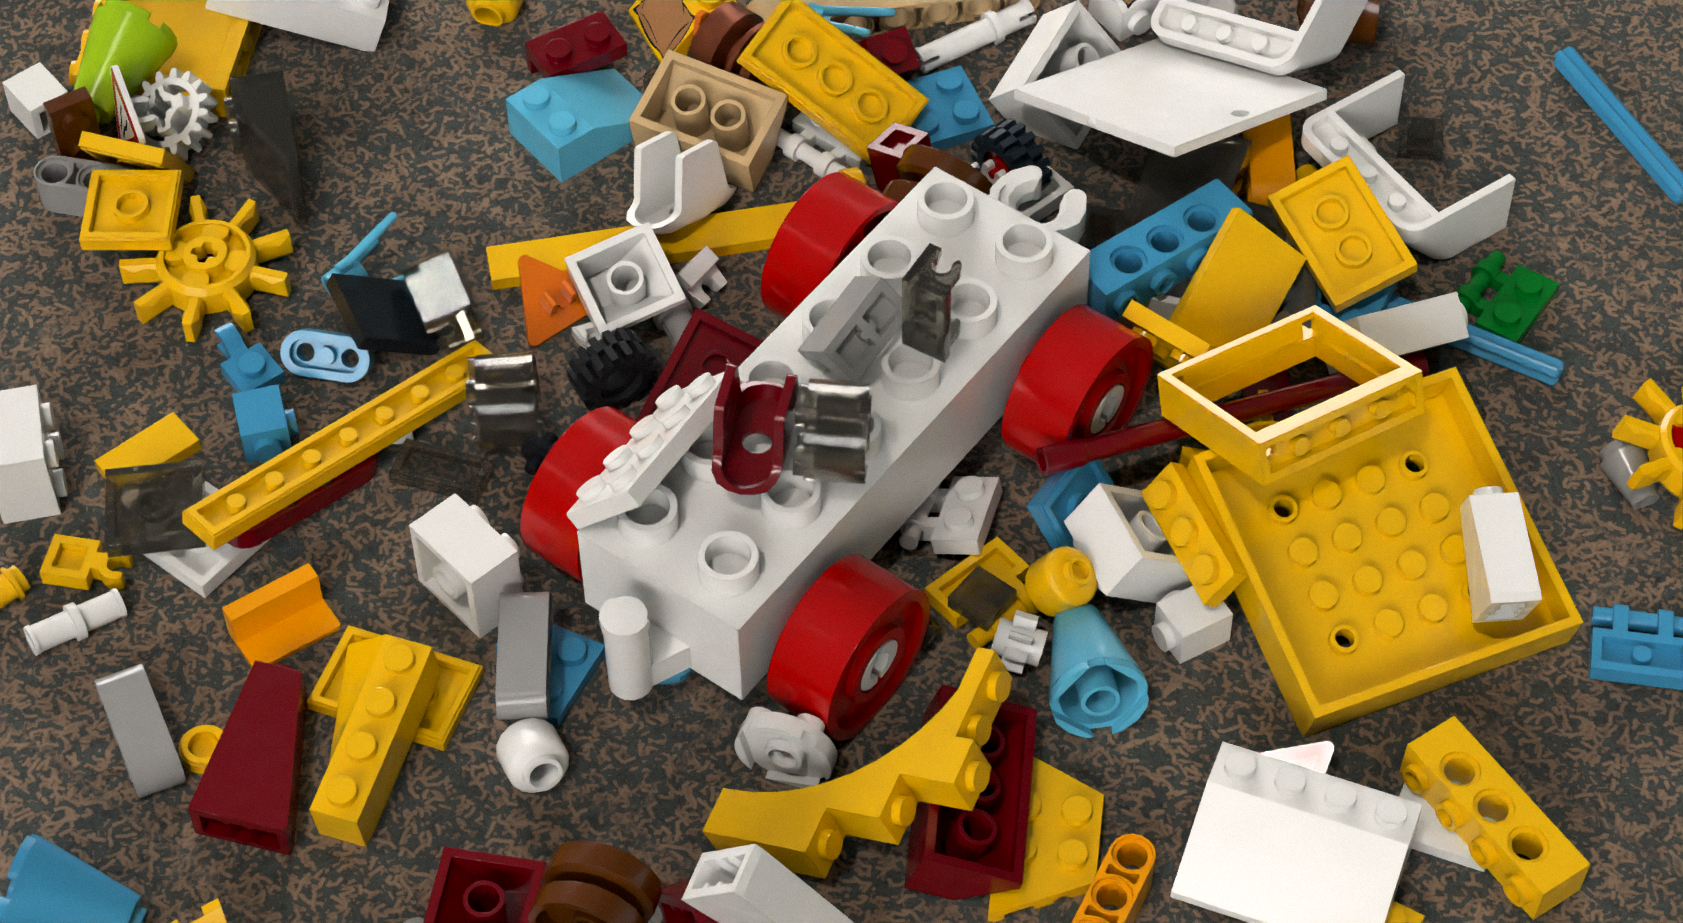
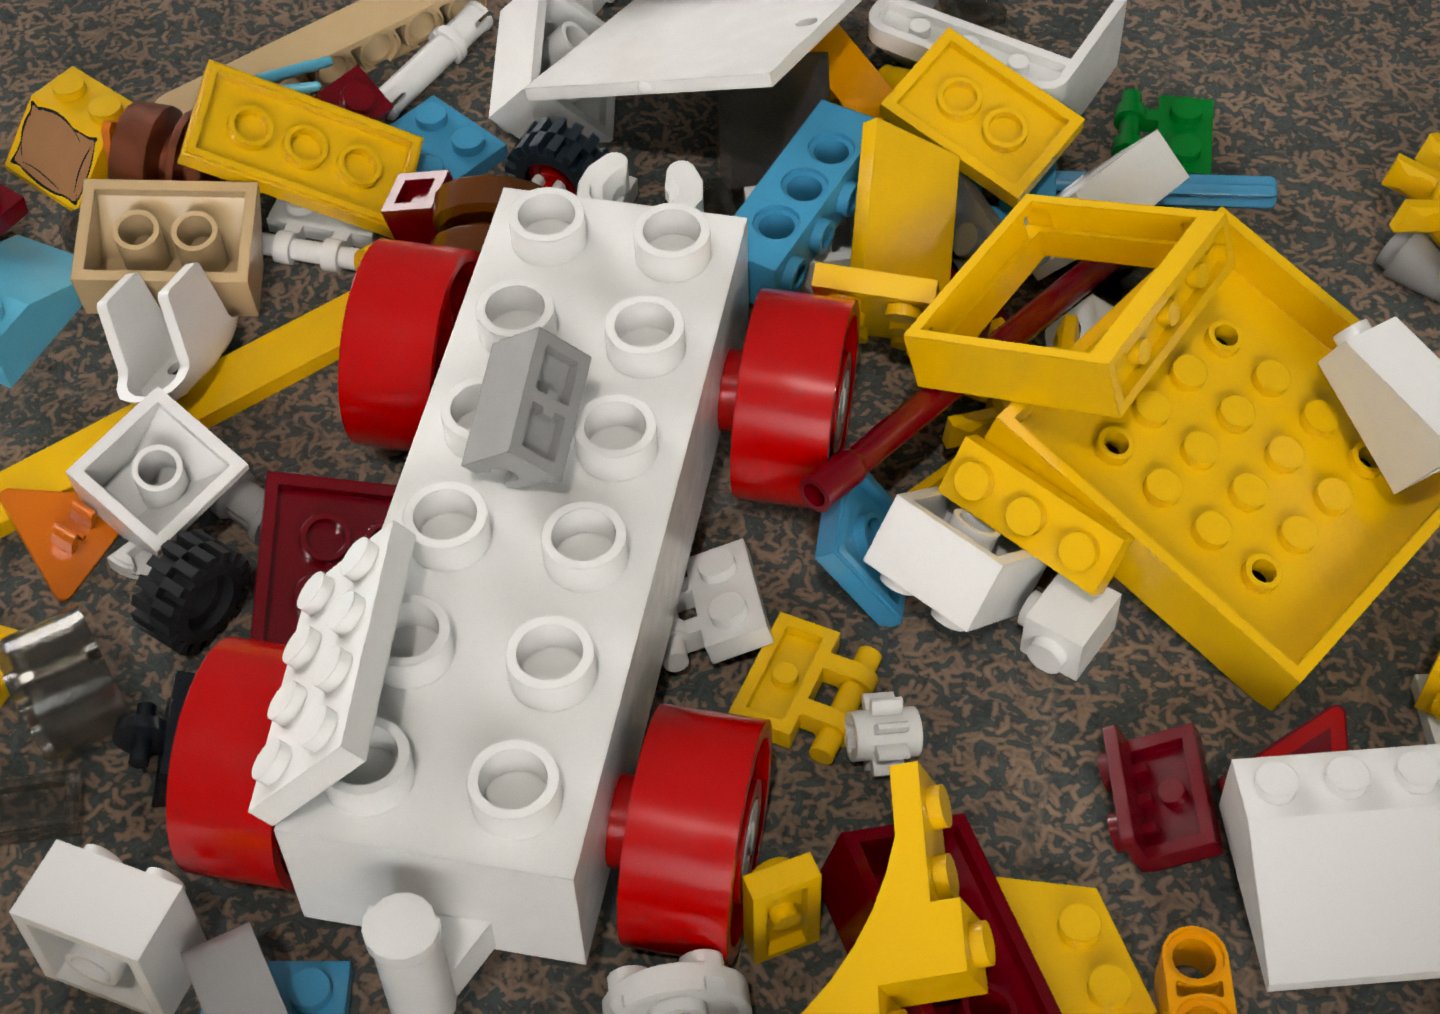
camera: 25 degrees left, 0 degrees up
(700, 271) = (243, 428): white tile -> none
(745, 411) = (466, 558): dark red piece -> none
(835, 430) = (586, 549): clear smoke brick -> none
(883, 716) = (781, 906): none -> yellow plate
(928, 305) = (620, 340): clear smoke hinge -> none
(982, 598) = (810, 696): clear smoke tile -> none
(1061, 581) = (899, 636): yellow head -> none
(1093, 675) = (997, 734): medium azure cone -> none
(1178, 754) = (1160, 797): none -> dark red bracket

